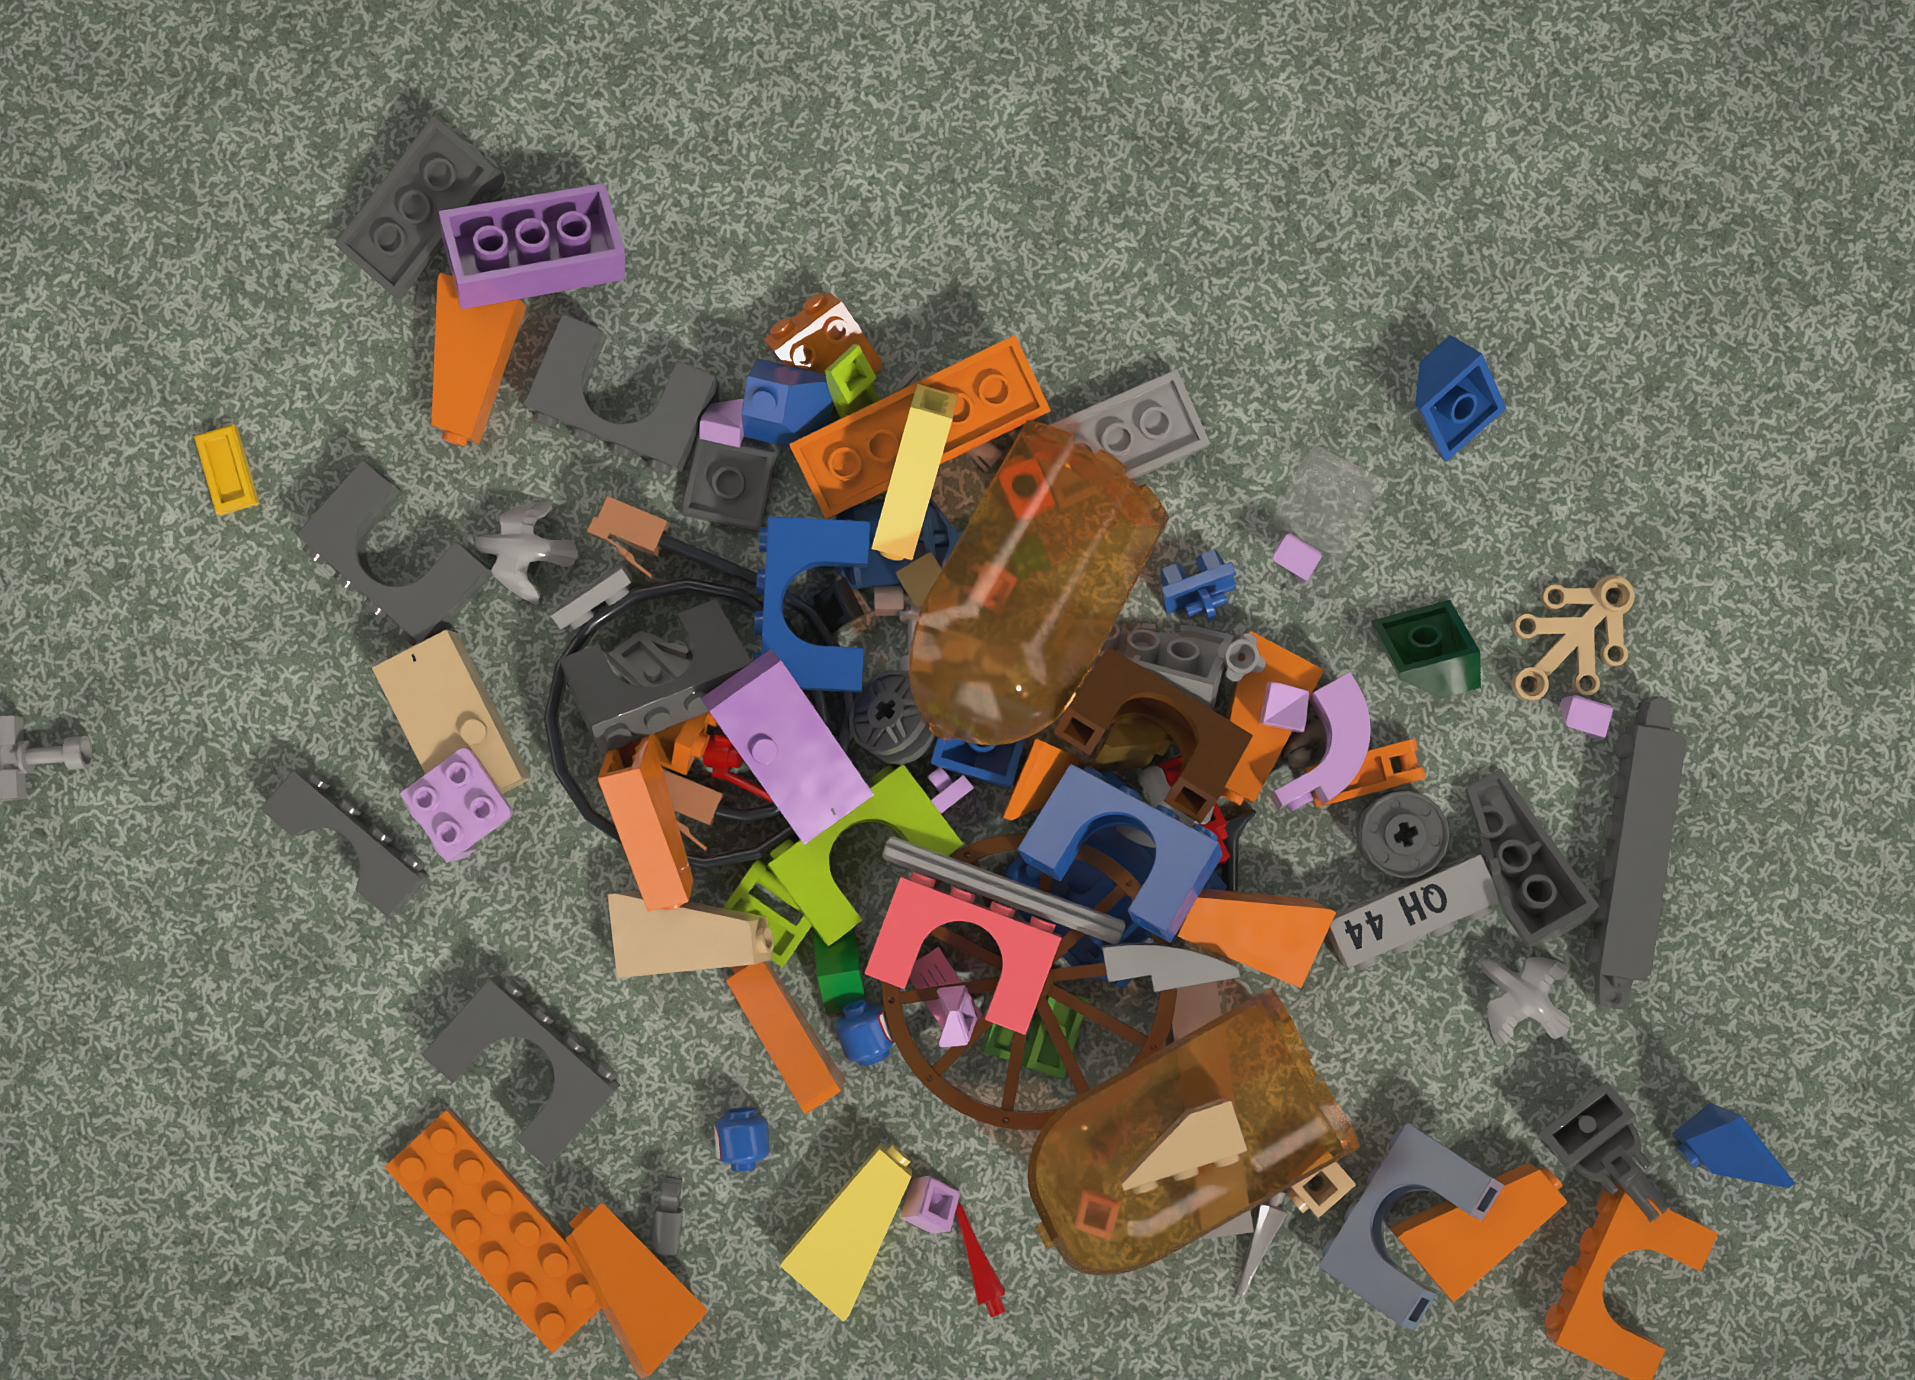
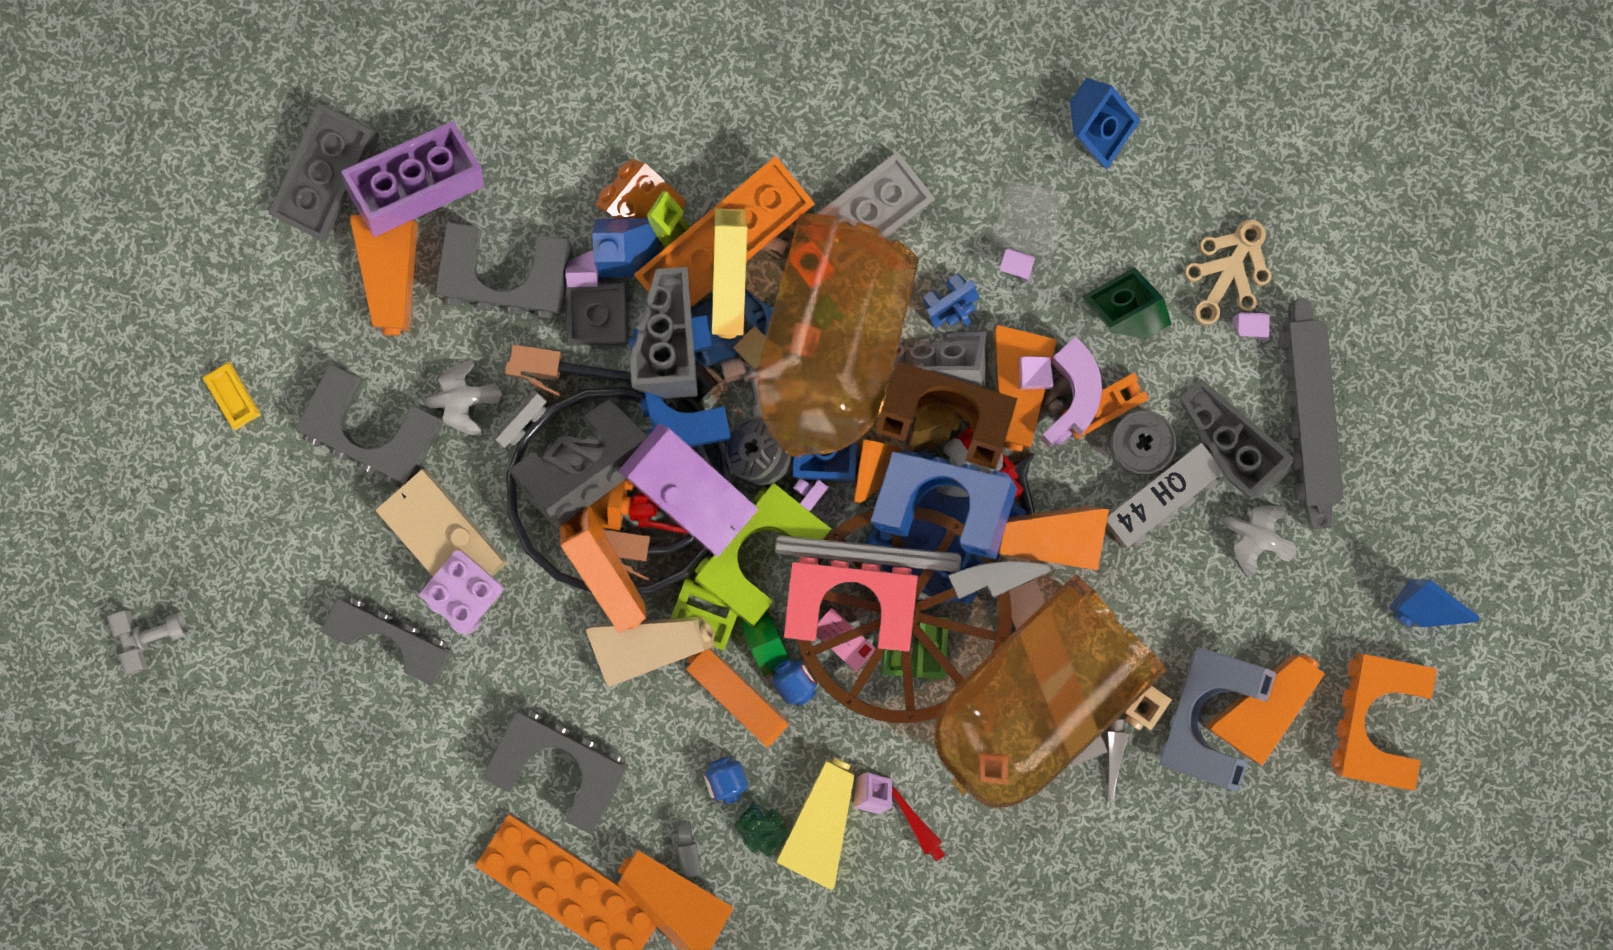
camera: 15 degrees left, 0 degrees up
(772, 1216) = (761, 829): none -> clear green brick
(804, 550) = (664, 345): none -> dark grey wedge
(958, 1014) = (858, 651): lavender slope -> none
(1195, 1139) = (1049, 694): tan slope -> none
(1237, 668) = (995, 336): light grey plate -> none
(1599, 1142) = (1337, 623): dark grey brick -> none

